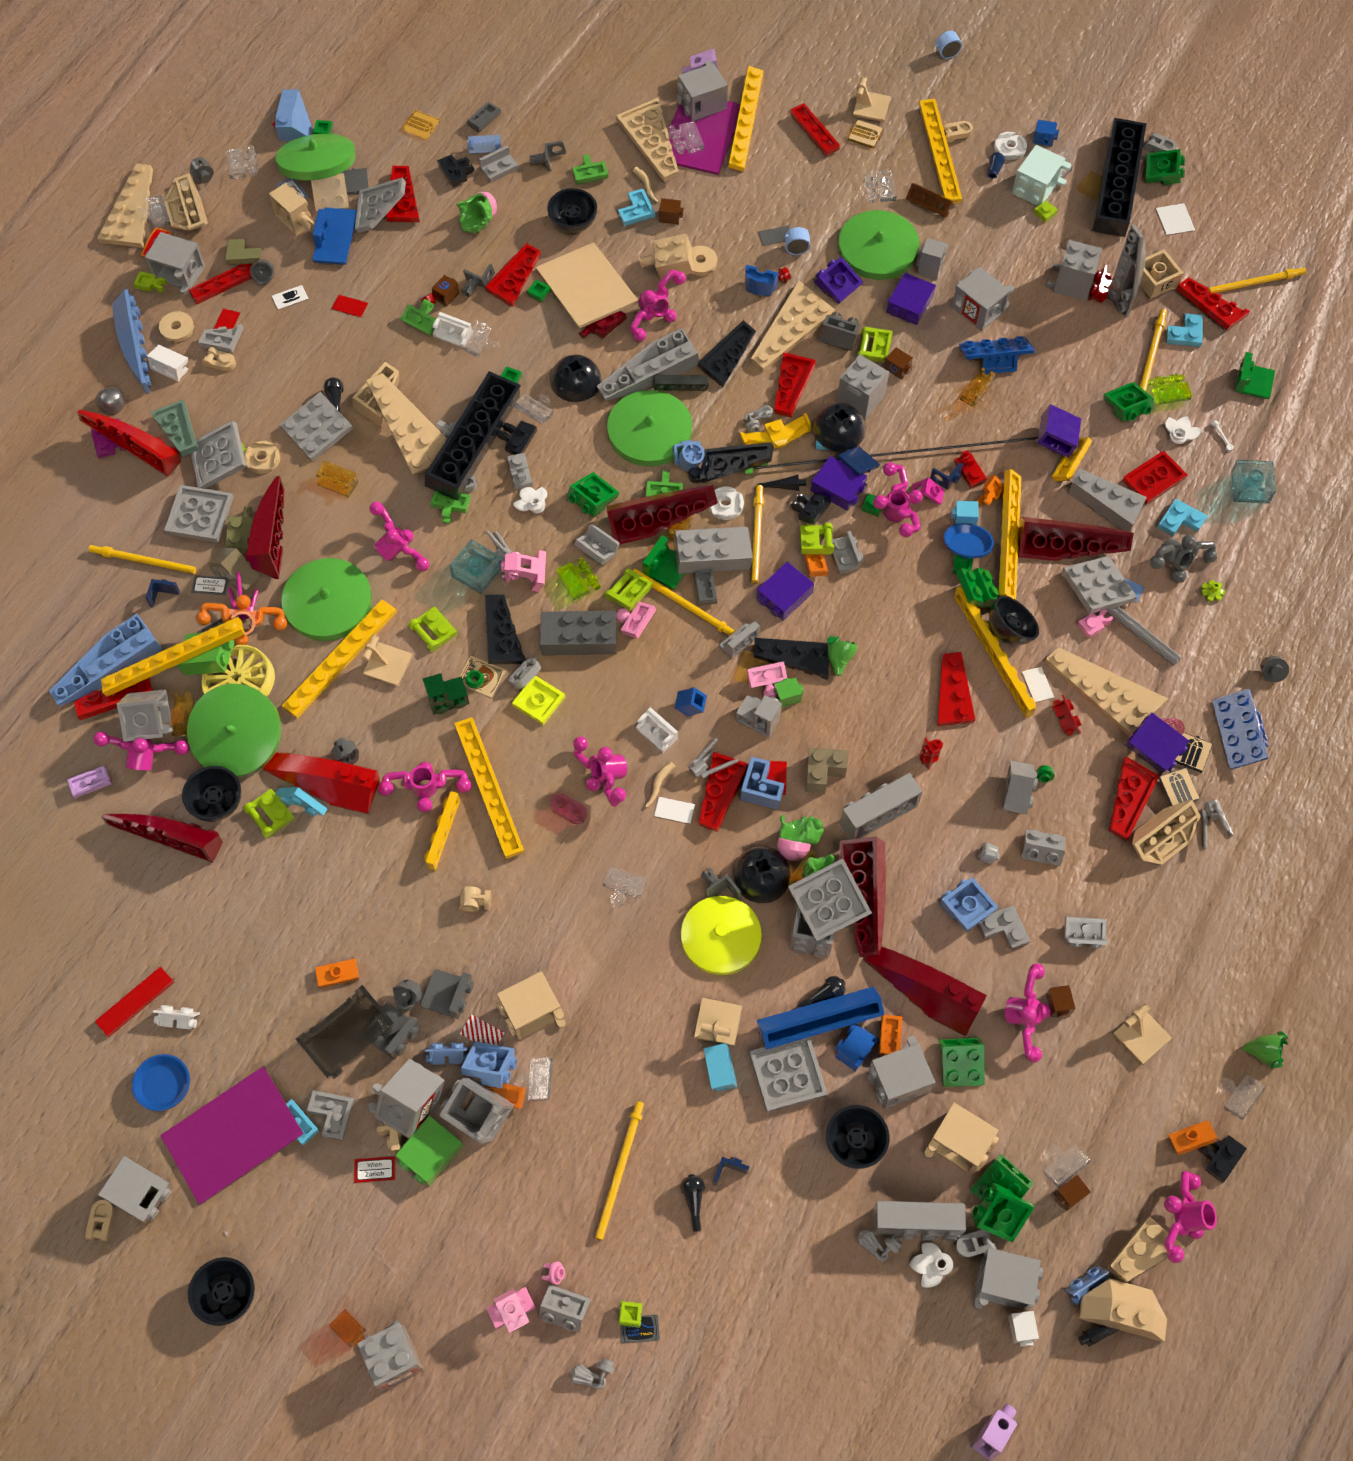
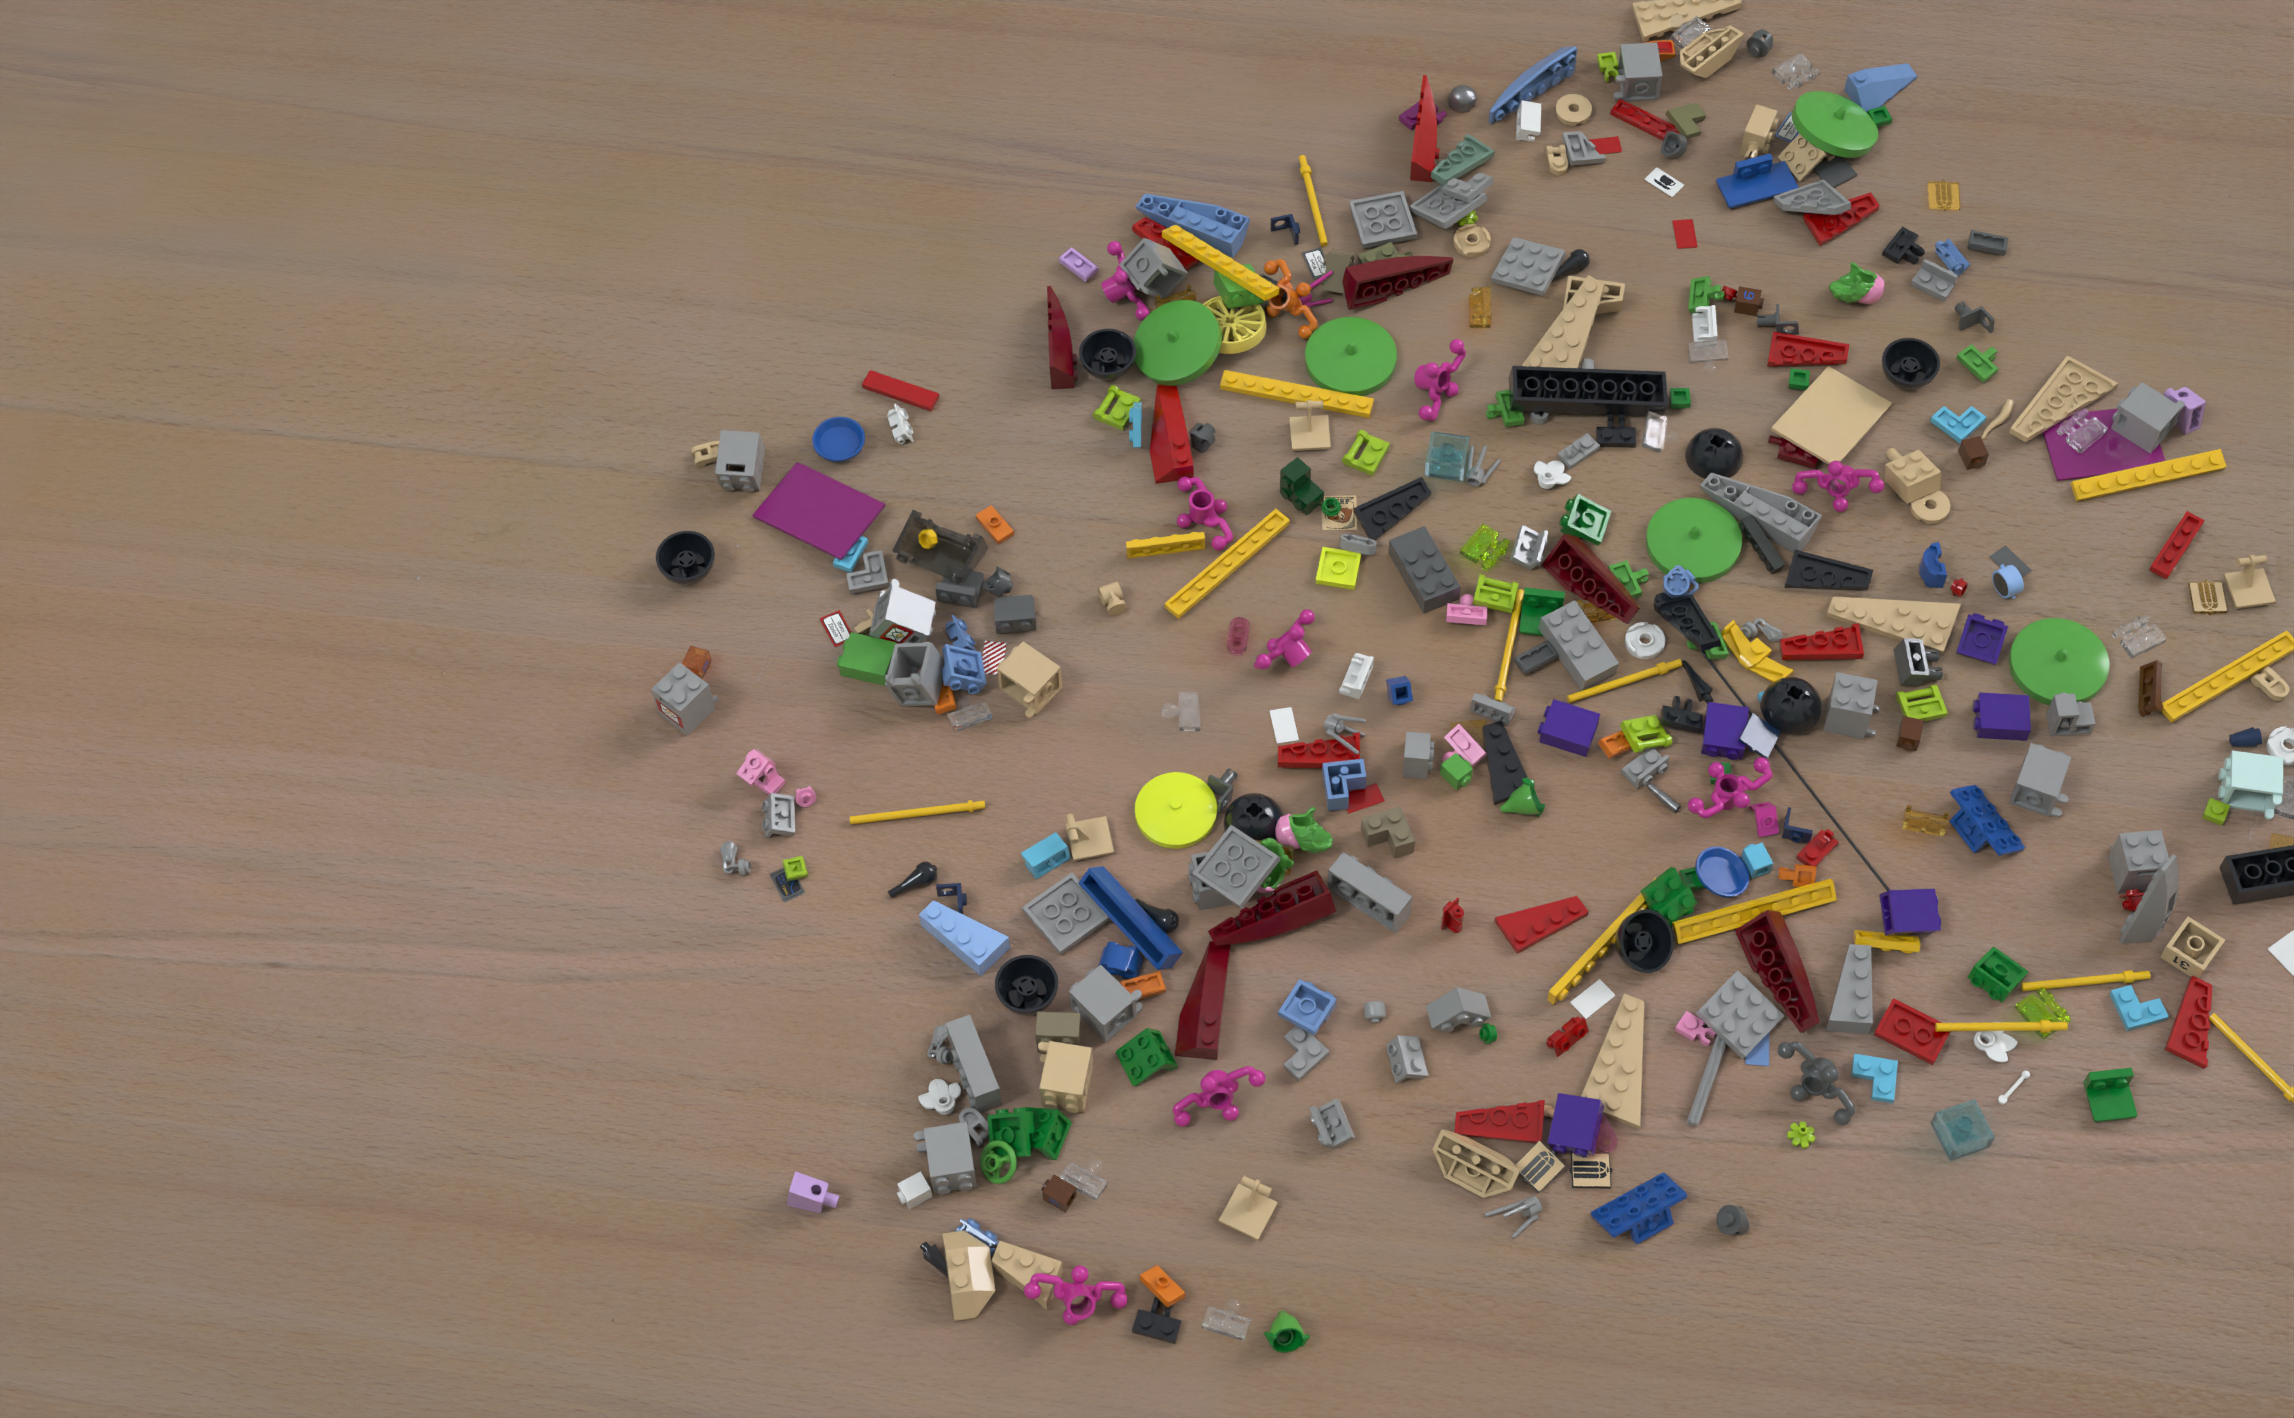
camera: 70 degrees right, 5 degrees down
(218, 432) = (1467, 190): none -> light grey plate
(326, 1040) = (927, 538): none -> yellow tile
(536, 573) = (1470, 506): bright pink tile -> none
(661, 775) = (1308, 698): tan animal -> none
(779, 1175) = (965, 937): none -> light blue wedge
(879, 553) = (1664, 798): none -> flat silver pin
(914, 1132) = (1058, 1027): none -> dark tan brick
(1024, 1238) = (993, 1163): none -> bright green piece
(1060, 1001) = (1247, 1124): reddish brown brick -> none
(1186, 393) = (2043, 1026): none -> yellow bar

